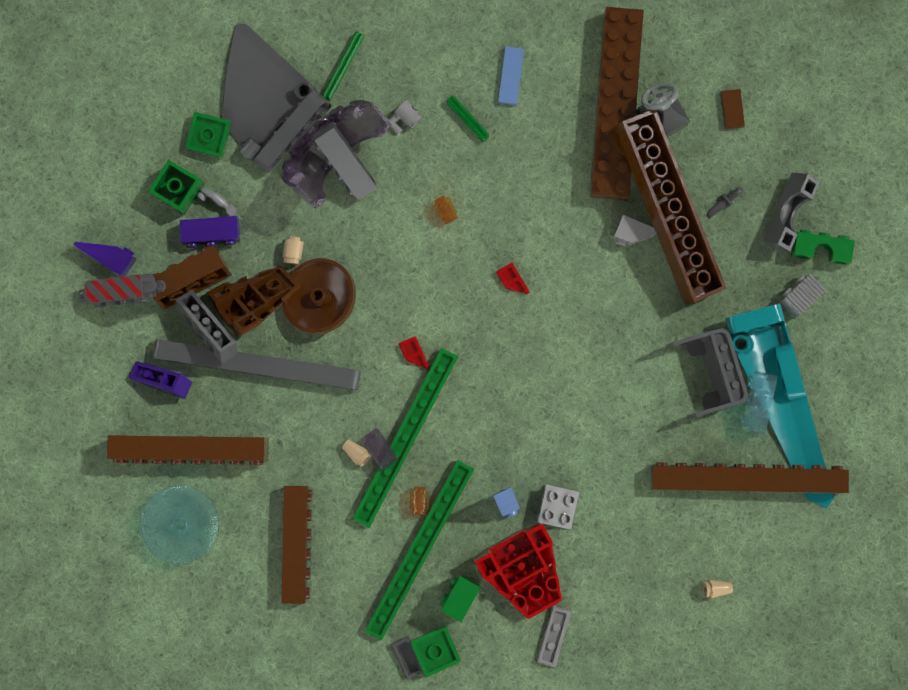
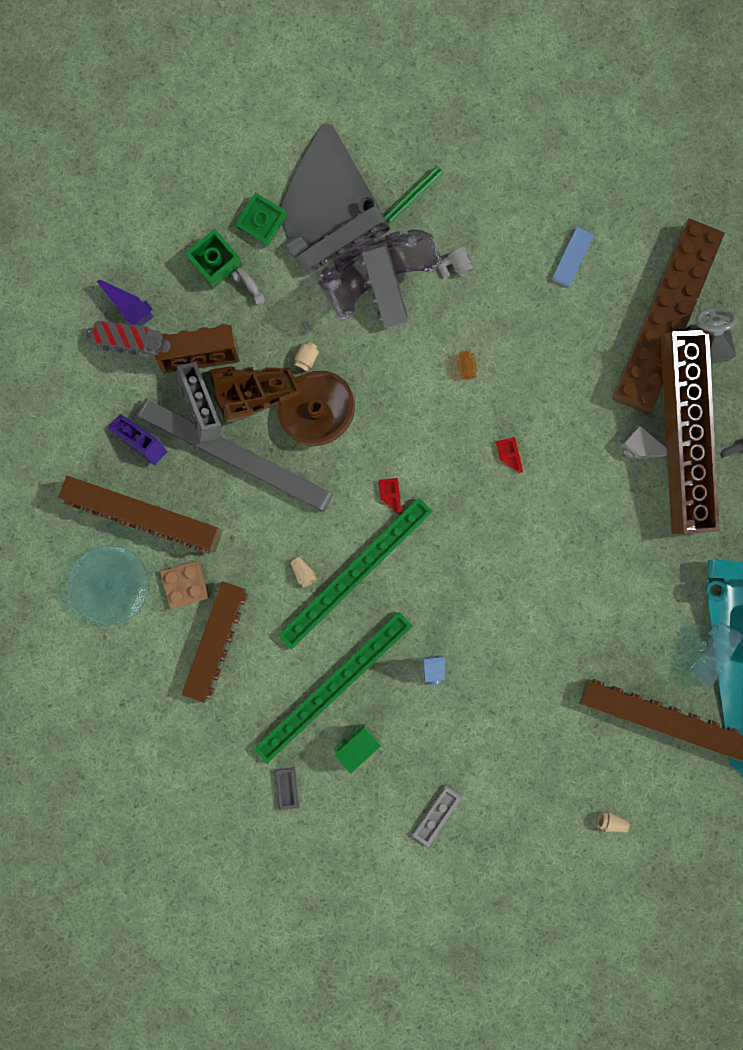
camera: 20 degrees right, 0 degrees up
(210, 231) = (232, 312): dark purple brick -> none
(249, 500) = (184, 584): none -> medium nougat plate
(379, 449) = (326, 576): clear purple tile -> none
(419, 500) = (348, 639): clear orange brick -> none
(435, 651) = (316, 792): green plate -> none
(467, 118) = (517, 284): green axle -> none
(523, 570) = (428, 741): red wedge -> none
(558, 506) = (482, 690): light grey hinge -> none
(722, 368) = (689, 607): dark grey windscreen -> none

